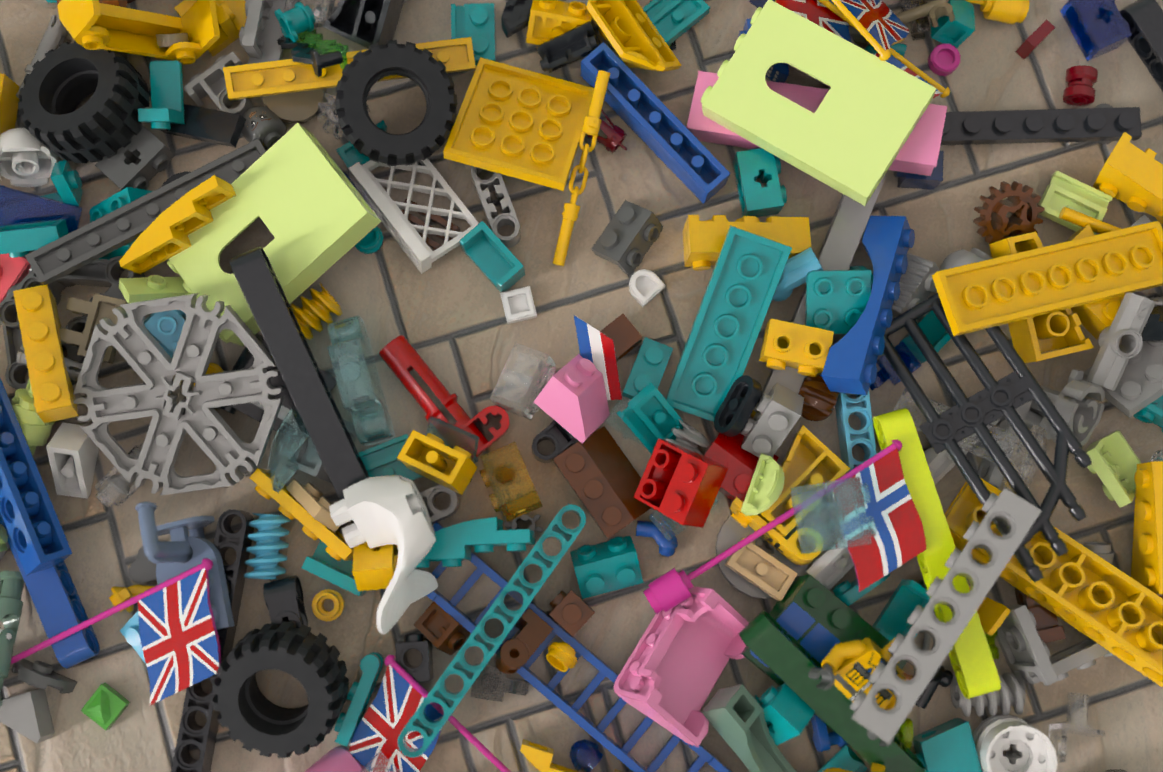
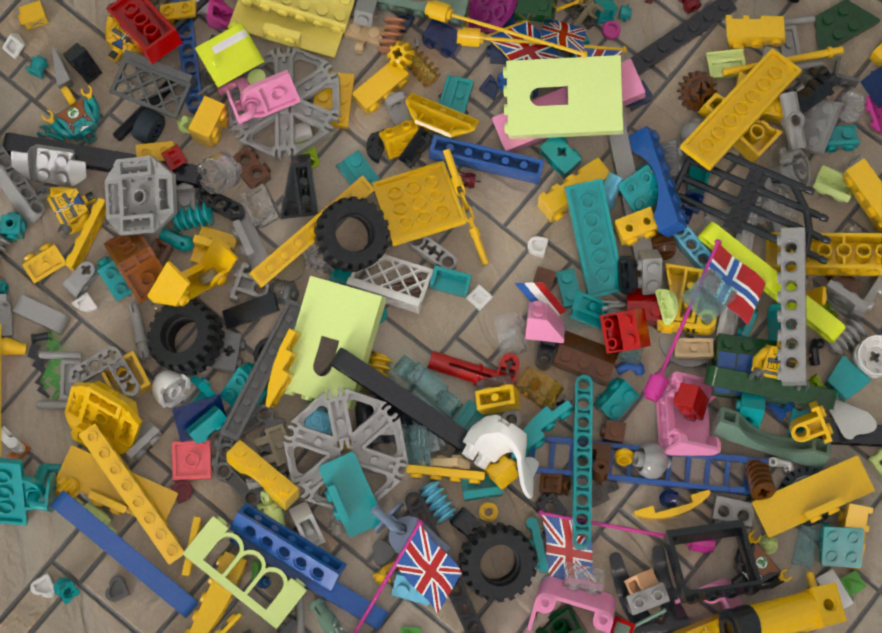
camera: 30 degrees left, 5 degrees down
(141, 457) = (349, 493): none -> teal bracket
(151, 288) = (289, 410): yellowish green plate -> none
(166, 96) = (224, 307): teal bracket -> none
(296, 21) = (265, 225): teal brick -> none
(315, 51) = (277, 232): piece -> none
(594, 688) = (652, 461): none -> light grey plant
(628, 237) = (512, 226): dark grey bracket -> none
(704, 646) = (691, 401): none -> red brick
(726, 32) = (489, 87): none -> dark blue tile
(979, 47) = (625, 12): none -> teal plate

